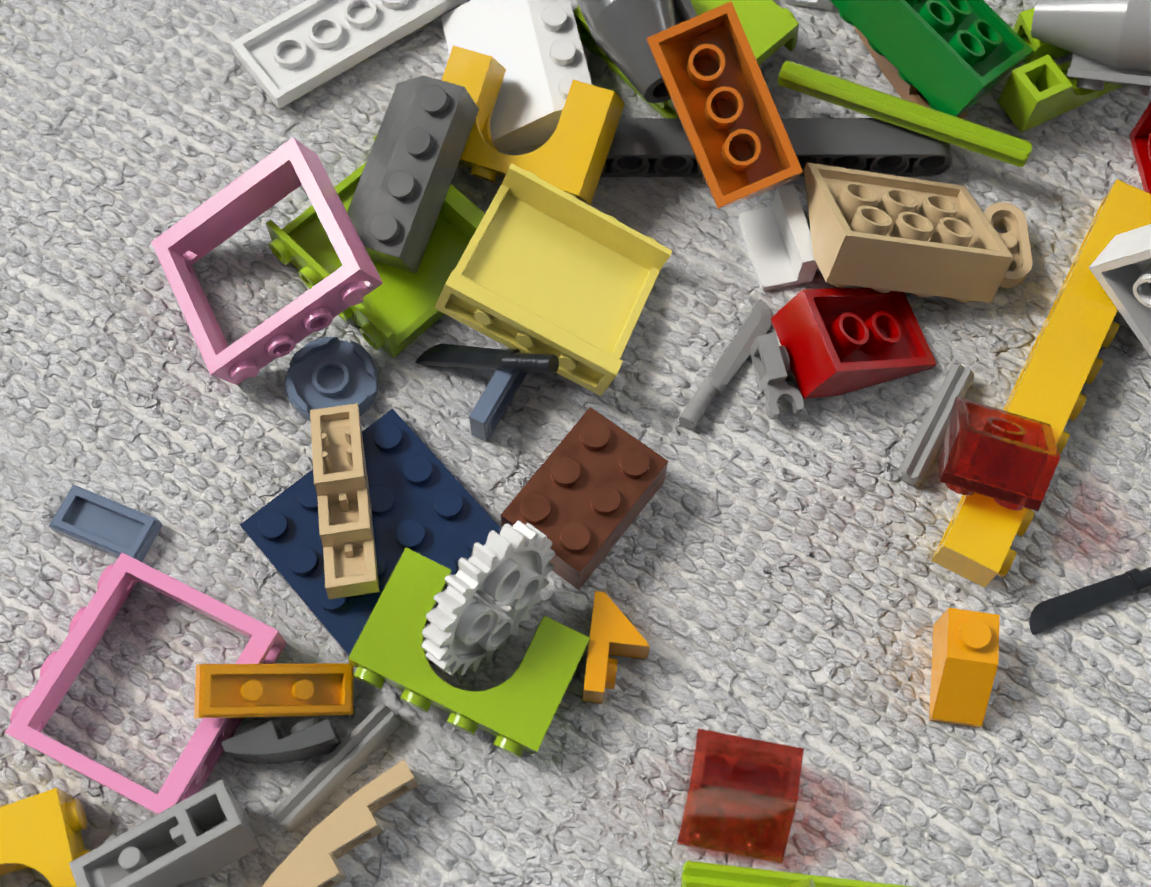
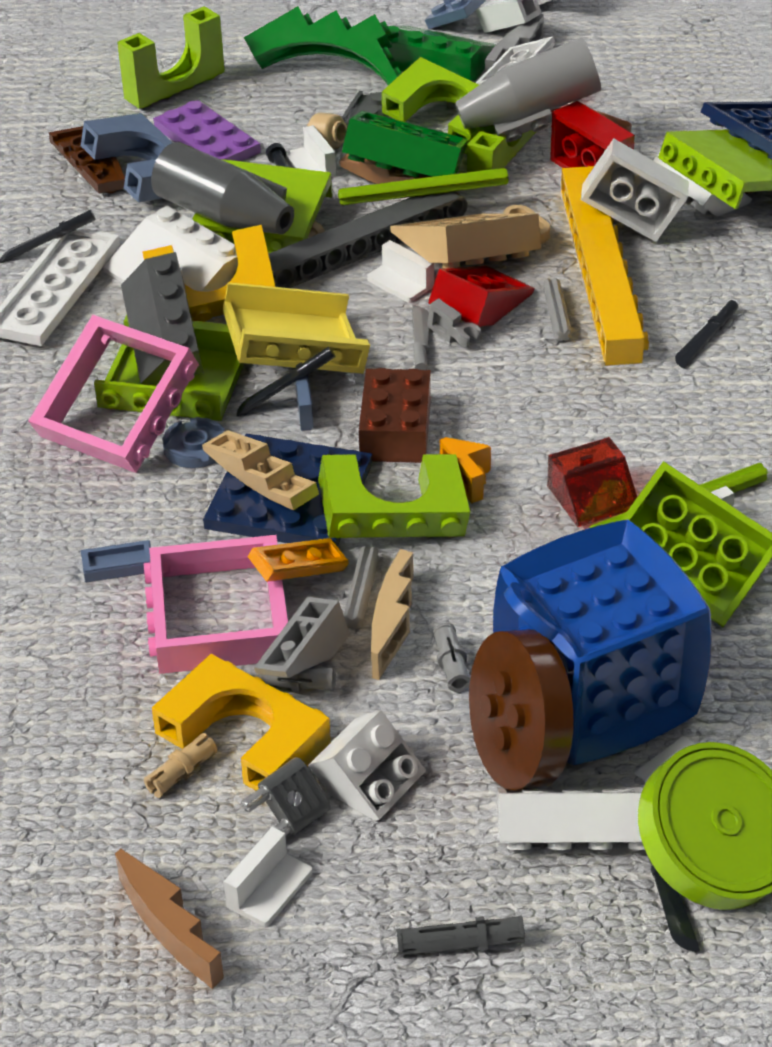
camera: 30 degrees left, 25 degrees down
(264, 743) = (332, 584): dark grey slope -> none
(469, 625) = (388, 452): white gear -> none
(725, 106) = (331, 207): orange slope -> none
(963, 666) = (659, 386): light orange slope -> none
(997, 455) = (602, 286): clear red slope -> none

